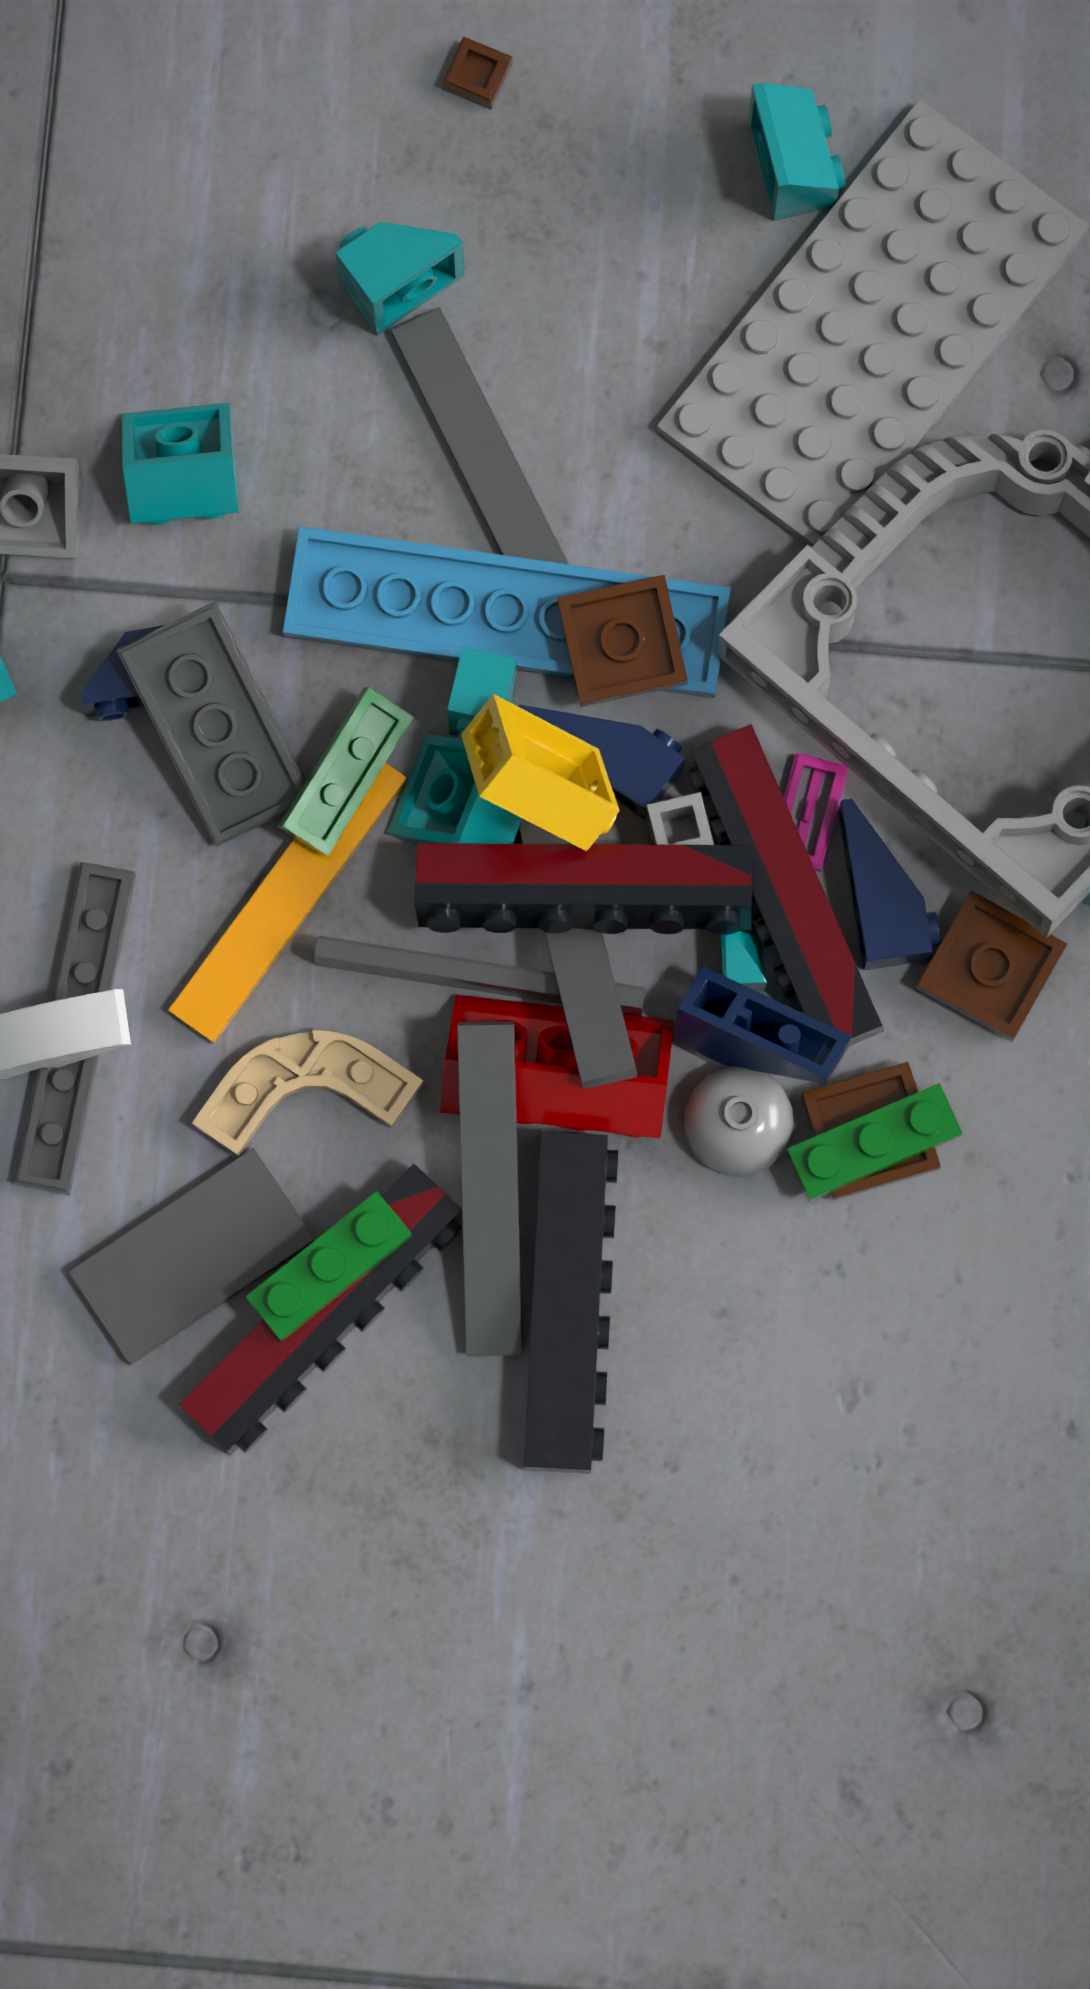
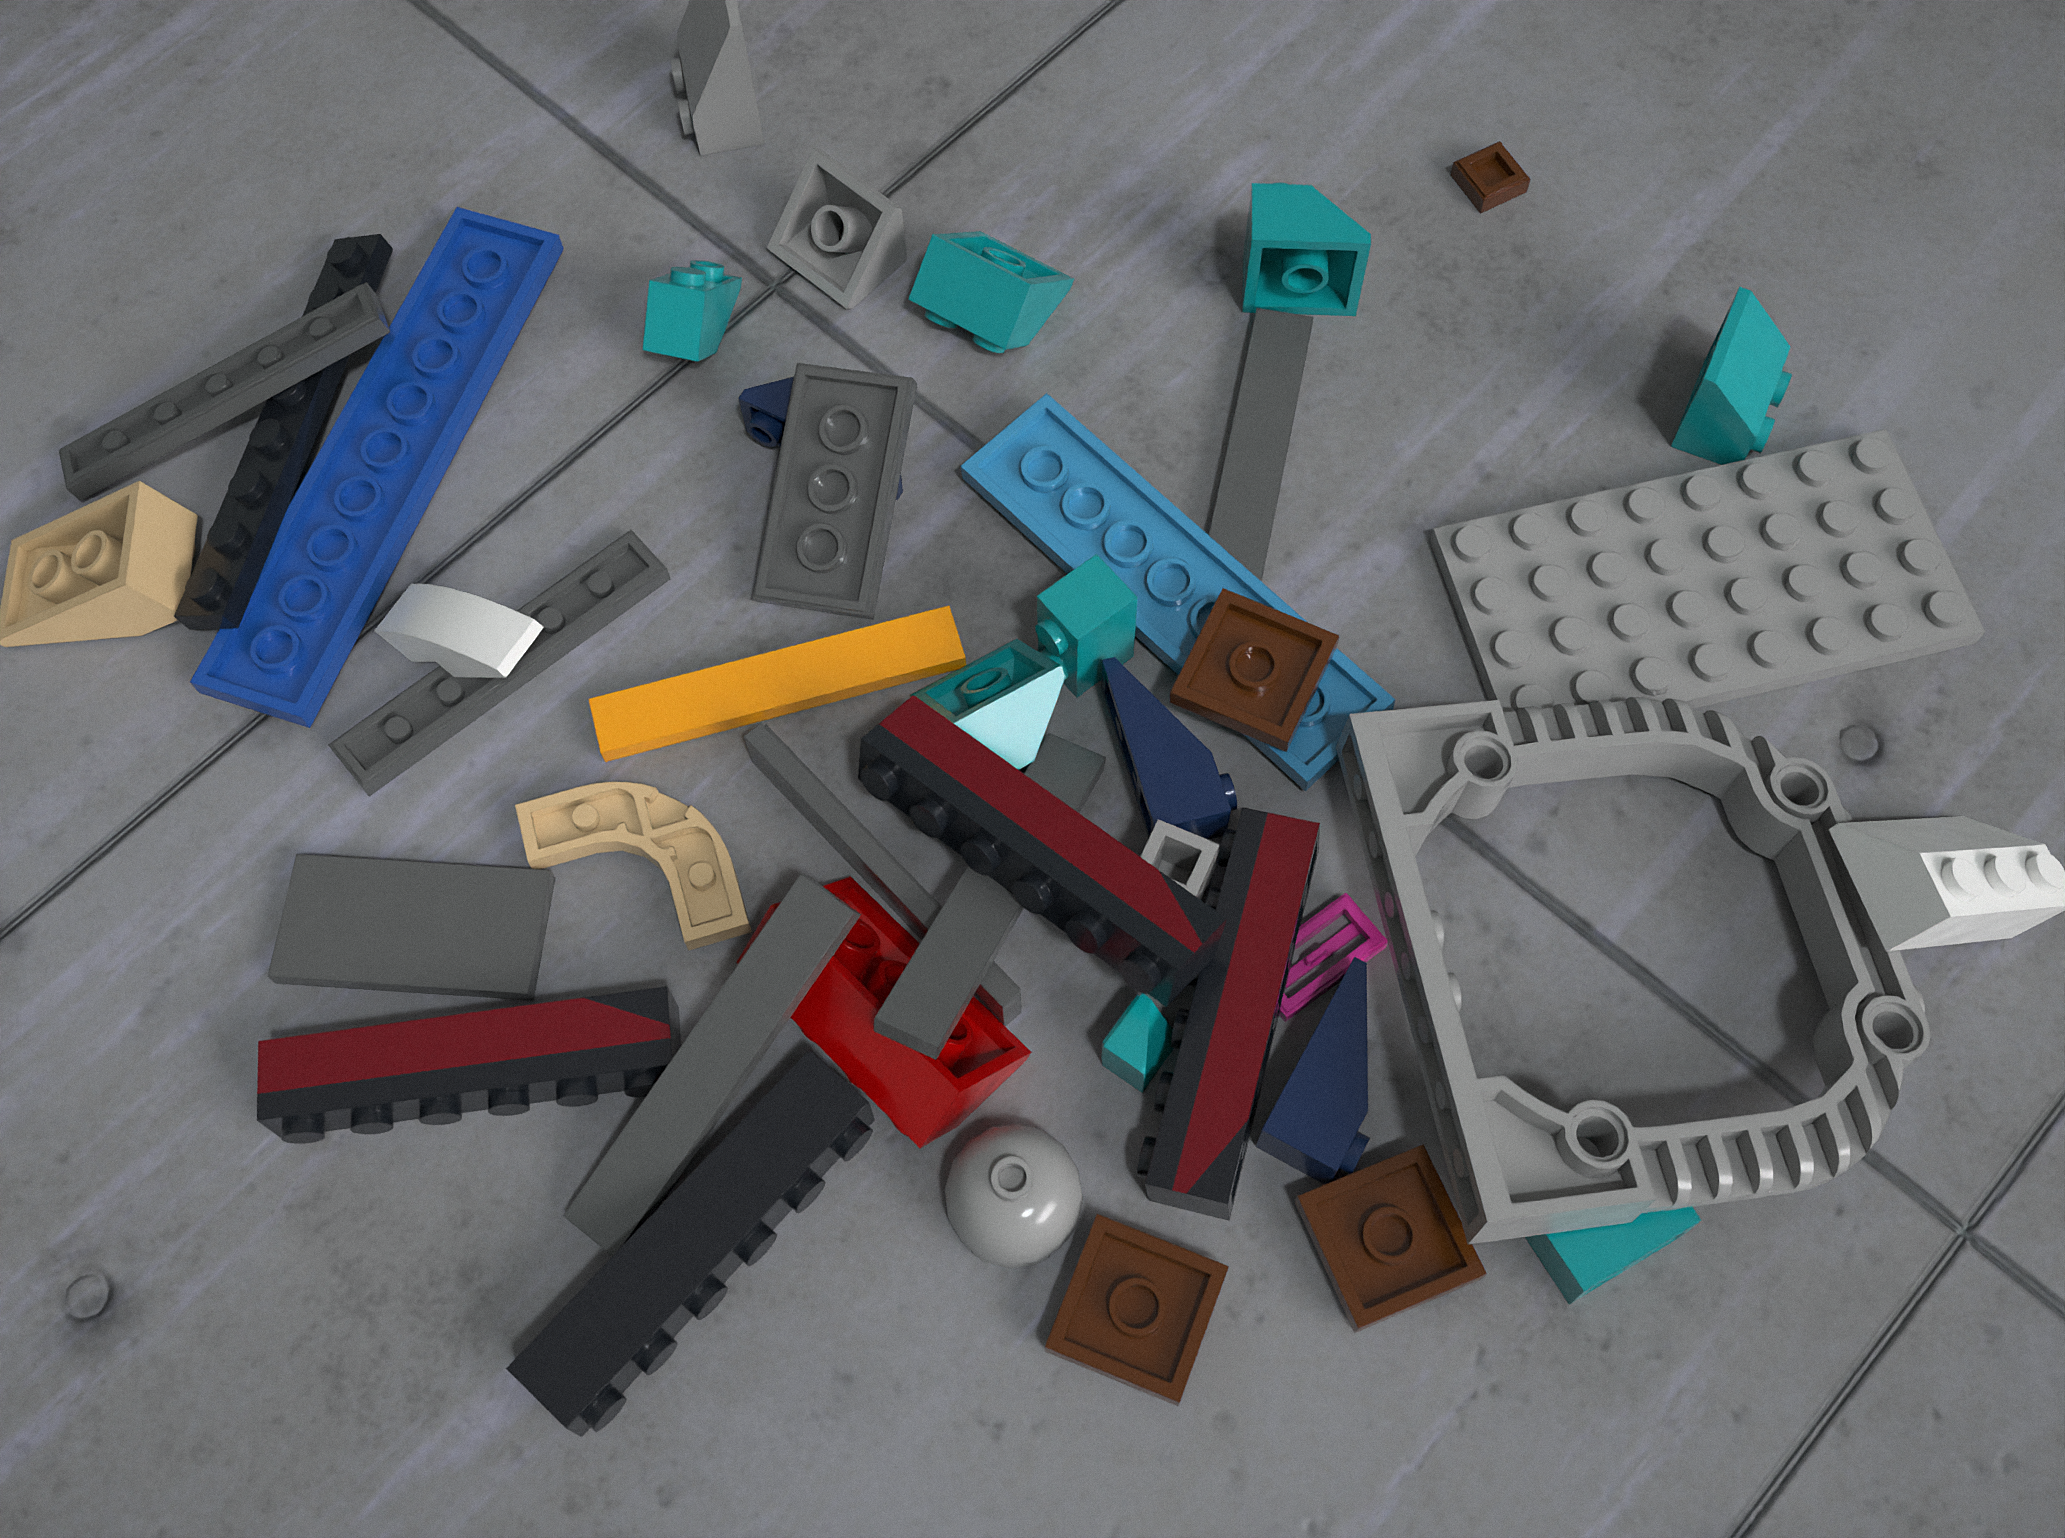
camera: 40 degrees right, 15 degrees down
(329, 1266) = (501, 1018): green plate -> none
(345, 771) = (911, 606): plate -> none
(540, 773) = (1073, 706): yellow window -> none
(756, 1031) = (1094, 1111): dark blue slope -> none
(874, 1142) = (1129, 1320): green plate -> none

